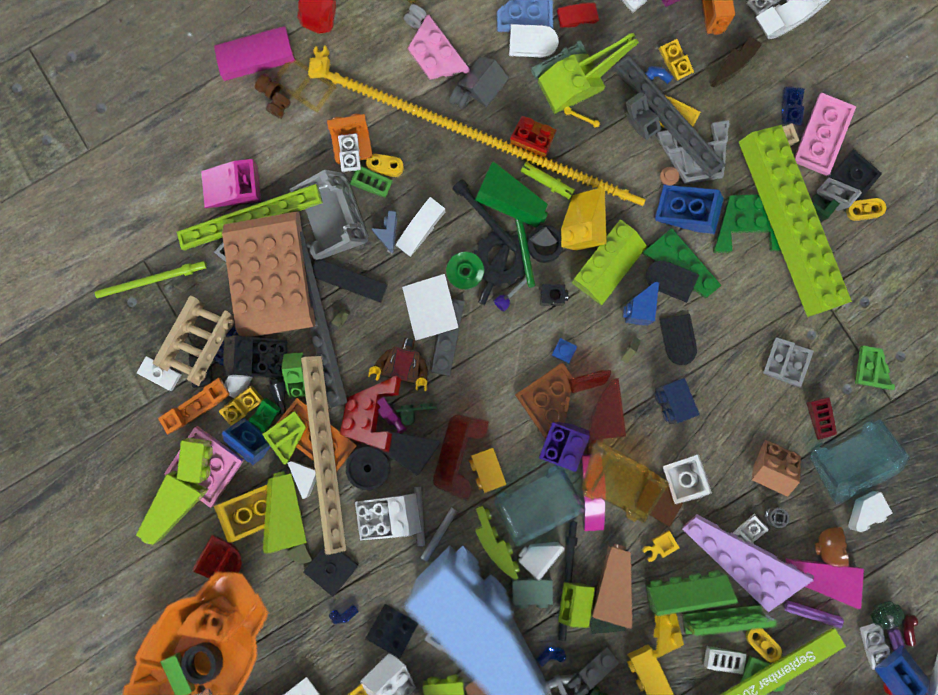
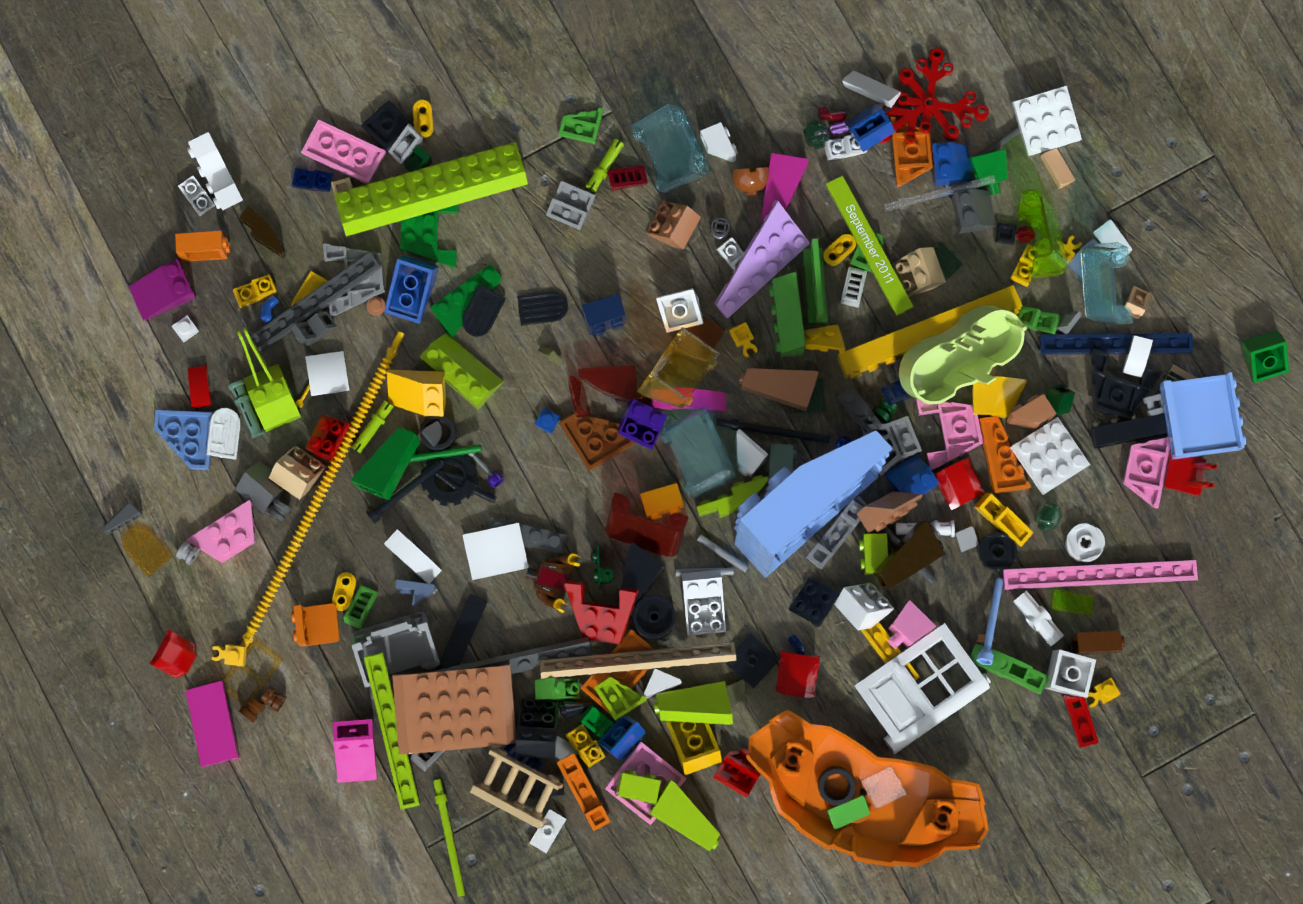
camera: 90 degrees left, 5 degrees down
(315, 616) = (797, 674): none -> red slope
(341, 317) = (502, 642): olive tile -> none
(349, 152) = (331, 625): white slope -> none
(390, 415) = (604, 591): magenta plate -> none
(463, 261) = (451, 509): green dish -> none
(499, 111) = (297, 472): none -> tan slope
(546, 300) = (490, 436): black brick -> none
(576, 605) = (795, 422): lime brick -> none
(598, 133) = (327, 373): none -> white slope
(643, 307) = (508, 341): blue slope -> none
(814, 614) = (813, 201): medium lavender axle -> none
(826, 390) = (601, 171): none -> lime pin

